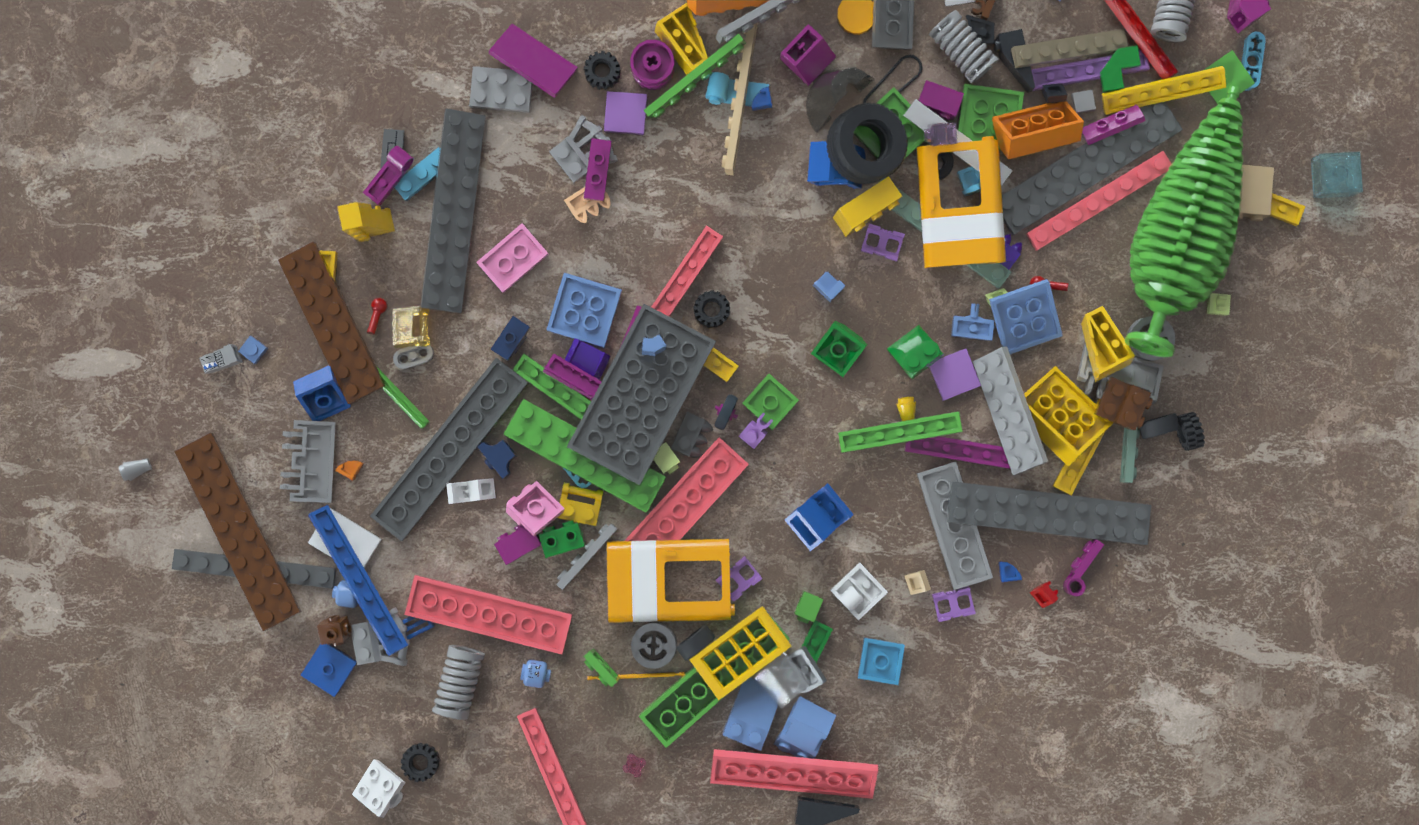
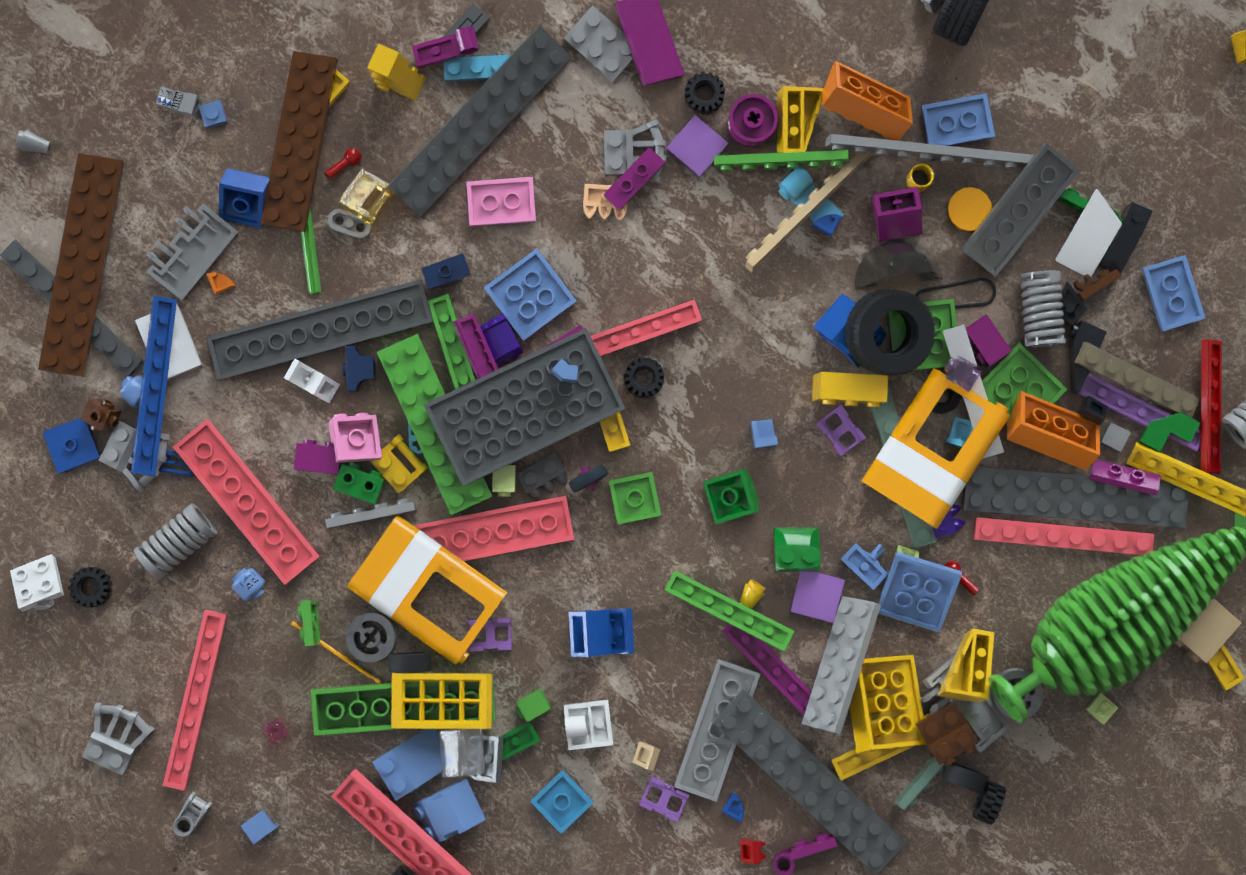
camera: 35 degrees right, 0 degrees up
(755, 432) = (601, 515): medium lavender plate -> none
(804, 7) = (924, 168): none -> yellow piece

